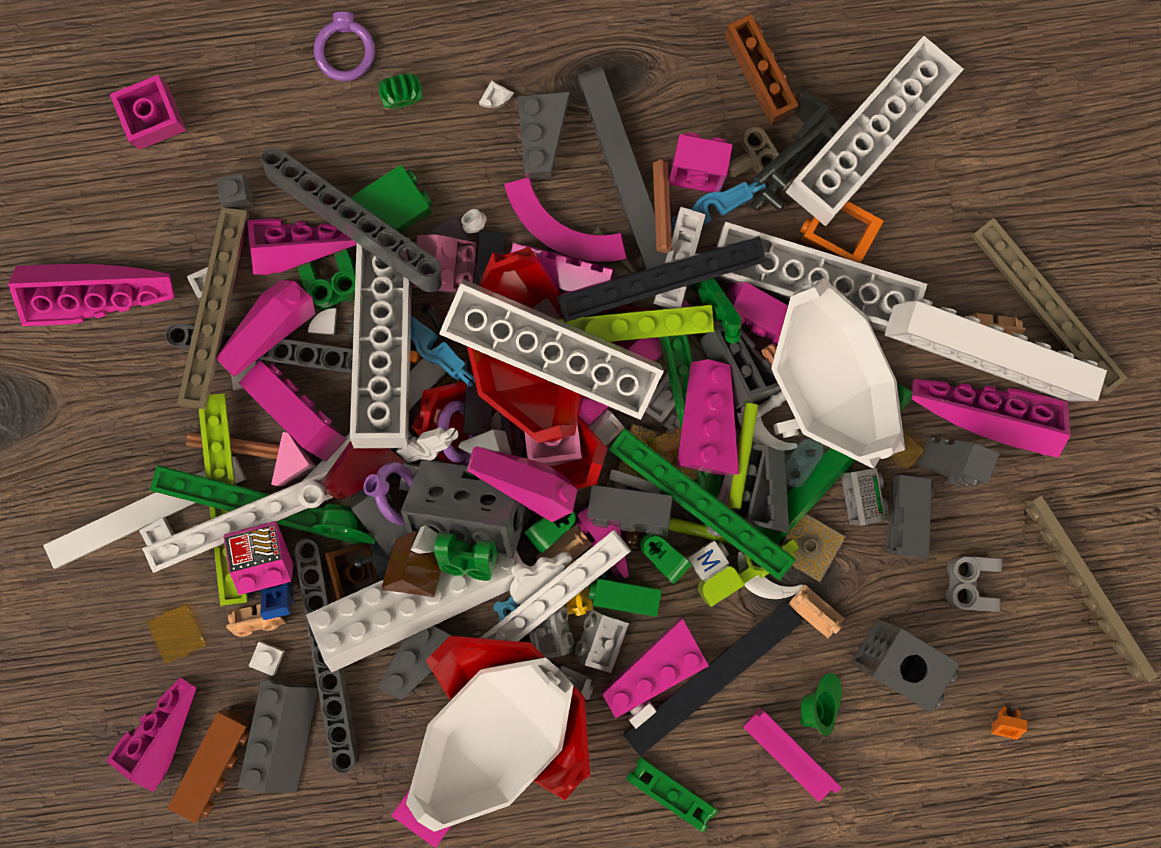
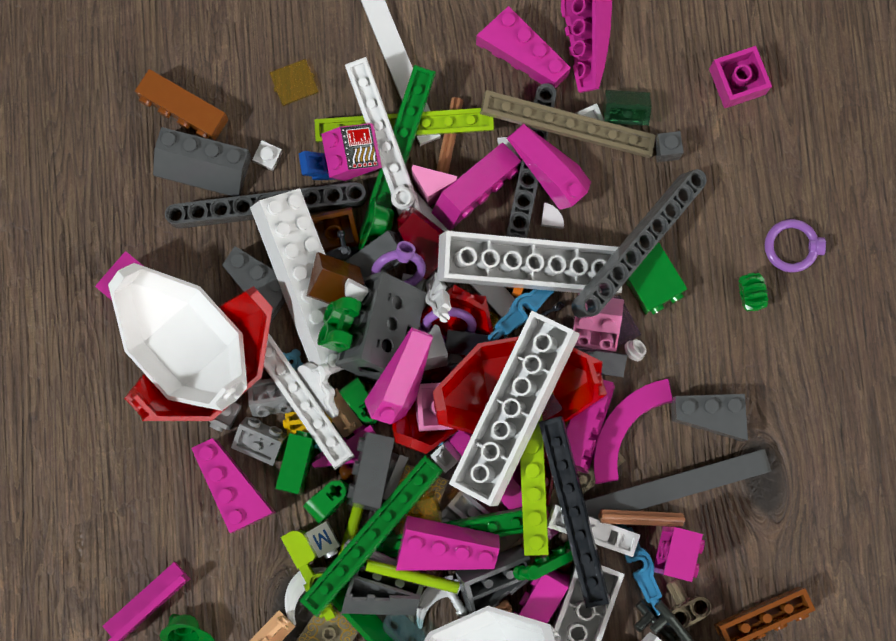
camera: 90 degrees right, 5 degrees down
(119, 370) = (520, 46): none -> dark pink wedge
(149, 749) = (198, 56): dark pink wedge -> none
(156, 531) = (380, 70): white plate -> none
(190, 240) = (627, 107): none -> clear green brick
(244, 622) = (299, 139): light nougat hinge -> none
(285, 246) = (620, 189): dark pink wedge -> none
(332, 285) = (583, 225): green piece -> none
(495, 96) = (747, 375): white tile -> none
(641, 713) = (193, 472): white plate -> none
(672, 794) = (121, 495): green plate -> none
(713, 678) = (219, 538): black tile -> none
(787, 428) = (435, 620): white plate -> none

